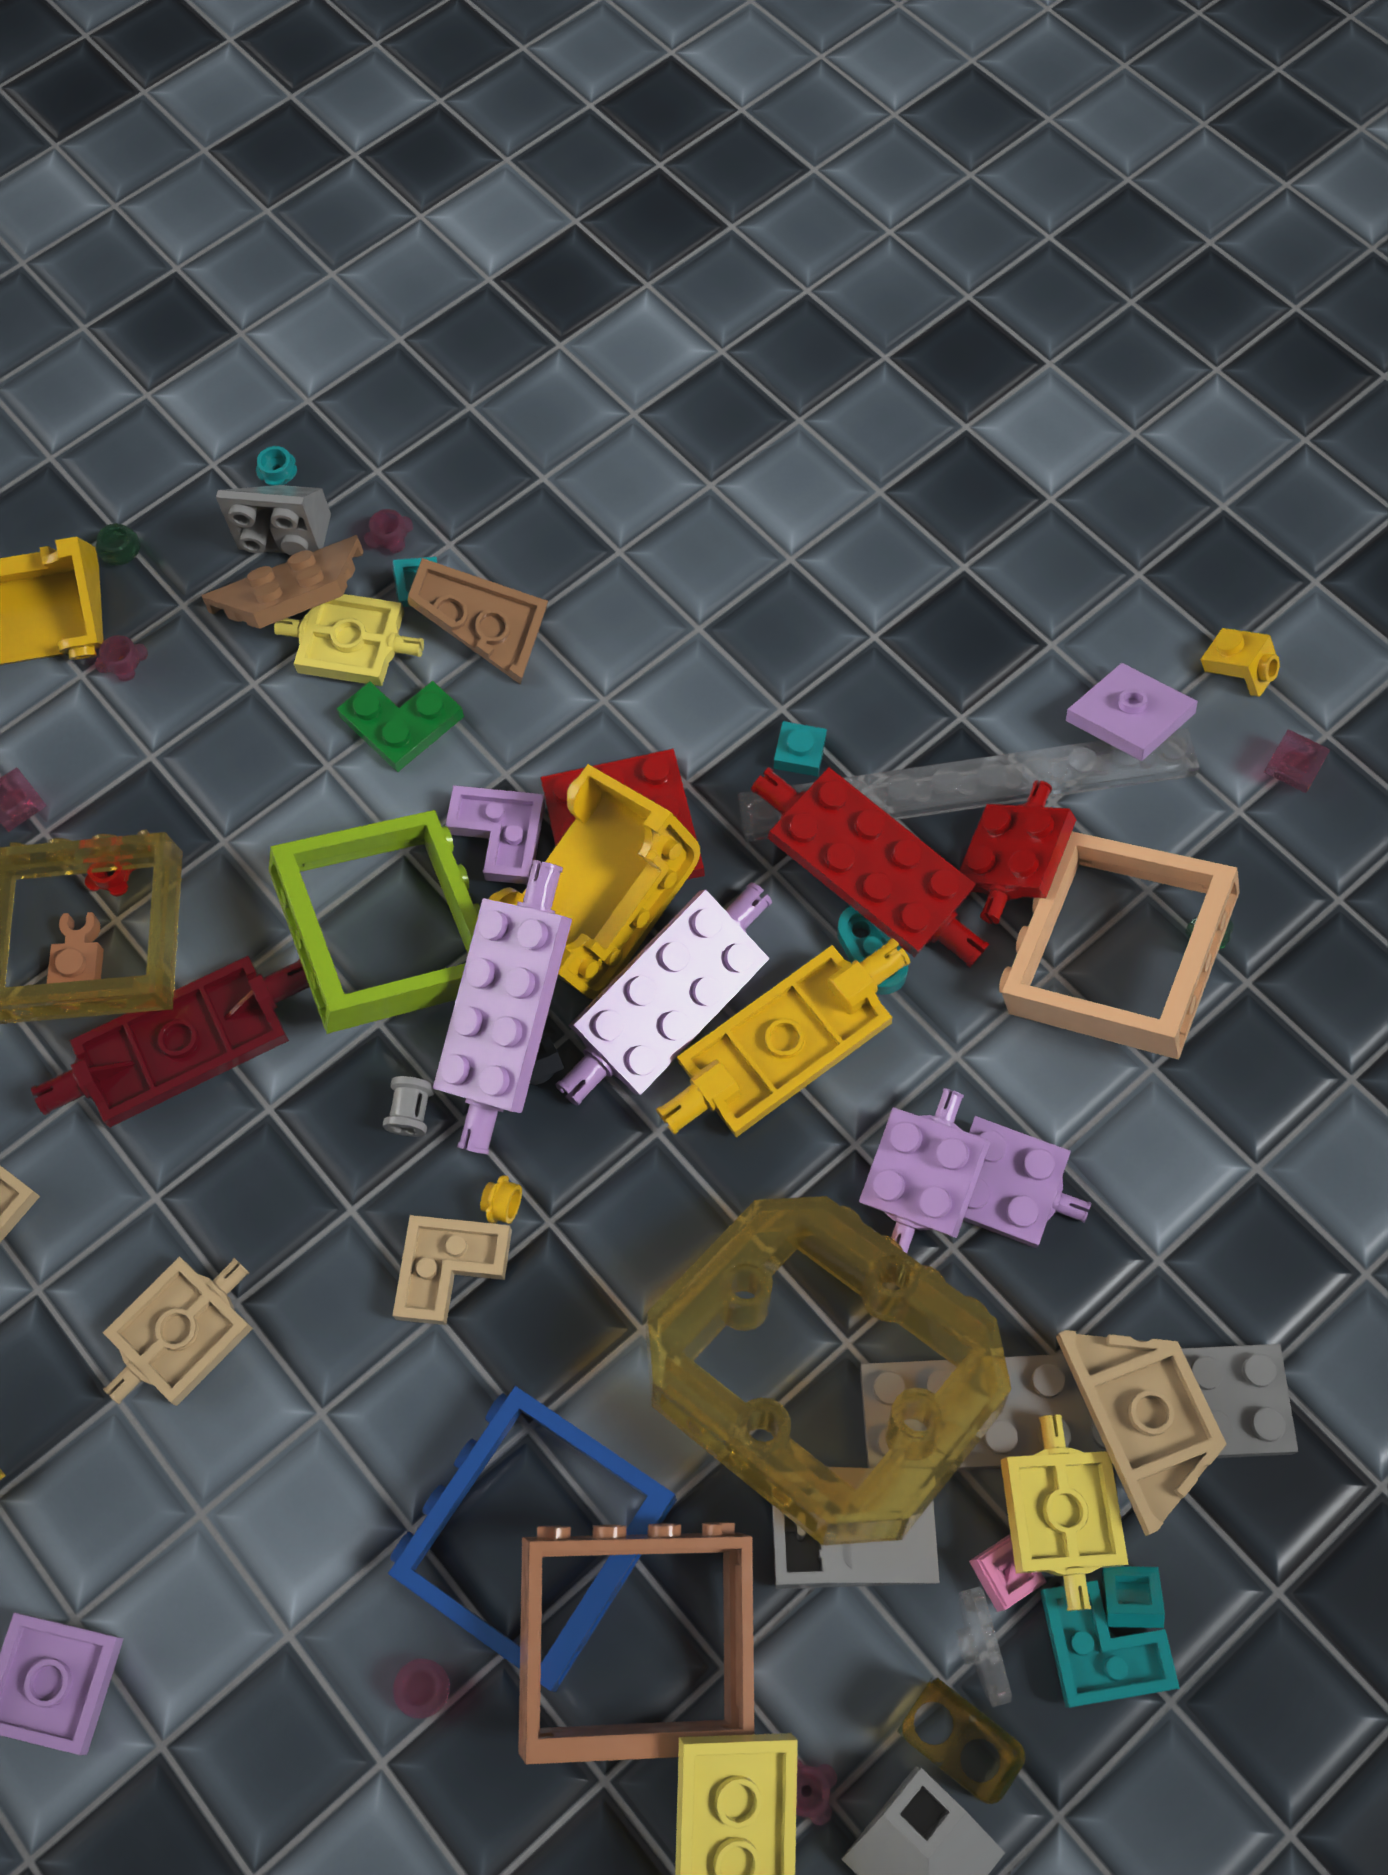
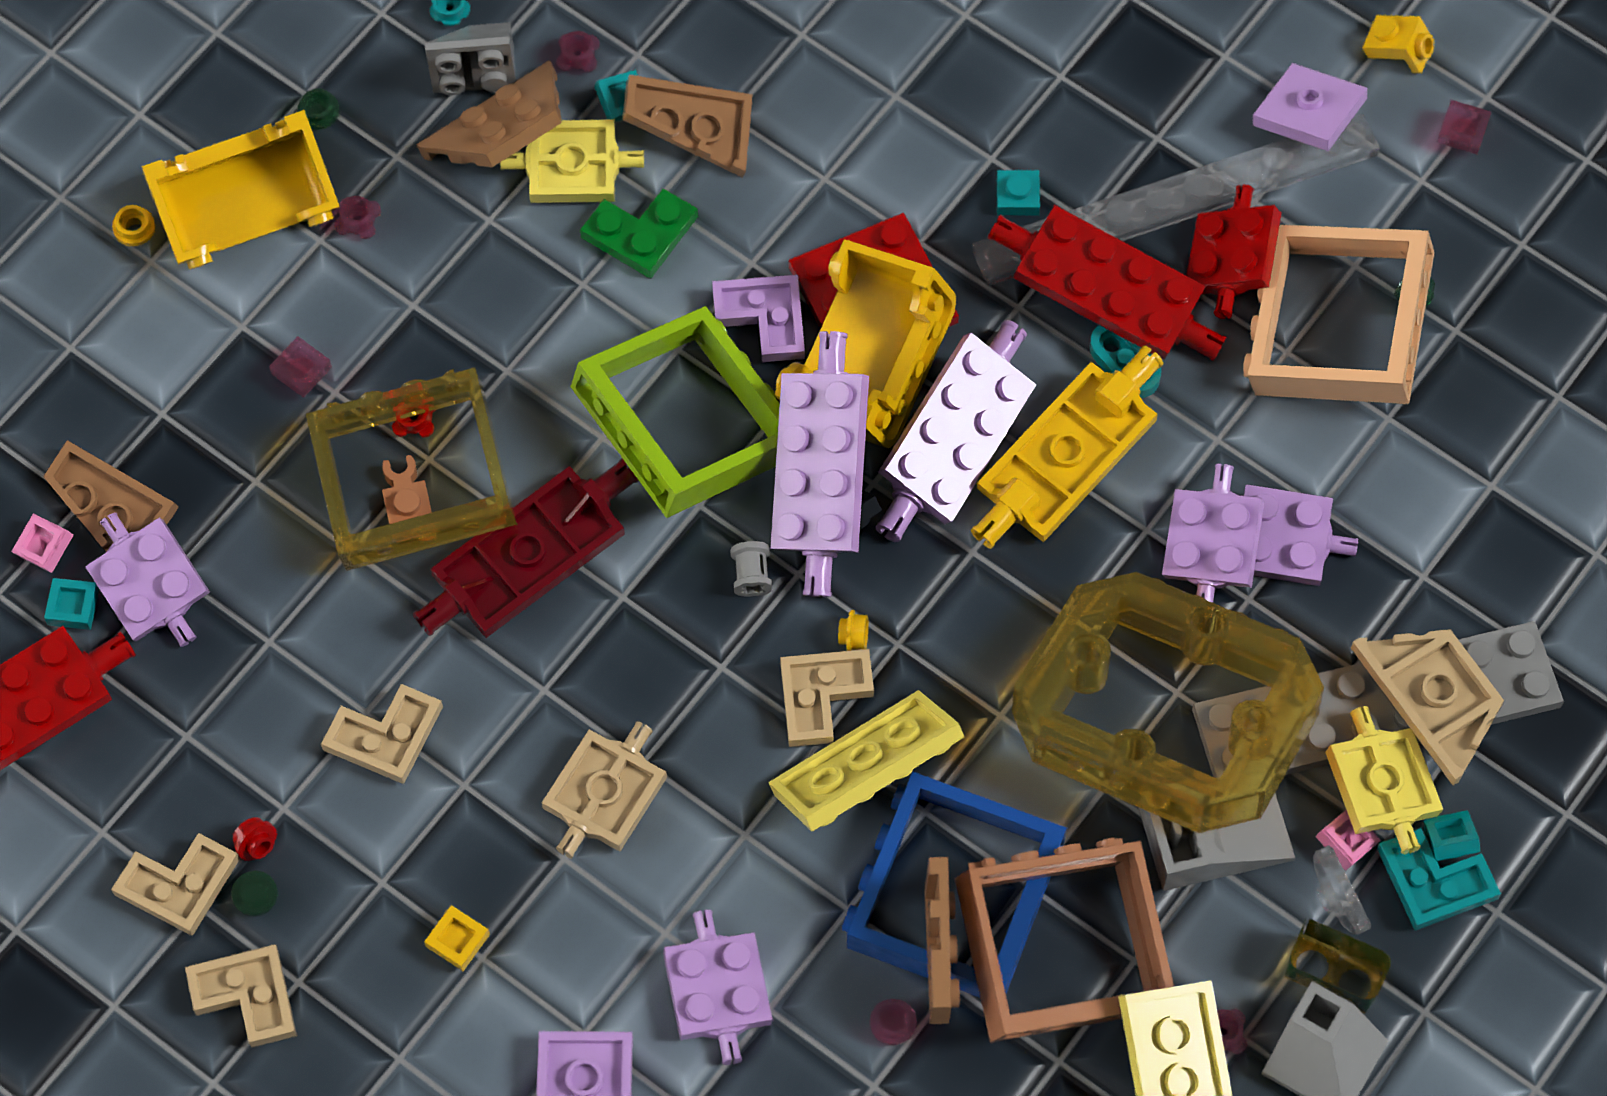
camera: 15 degrees left, 0 degrees up
(234, 1598) = (717, 986): none -> lavender plate
(467, 1360) = (866, 760): none -> light yellow plate
(470, 1680) = (940, 944): none -> medium nougat wing

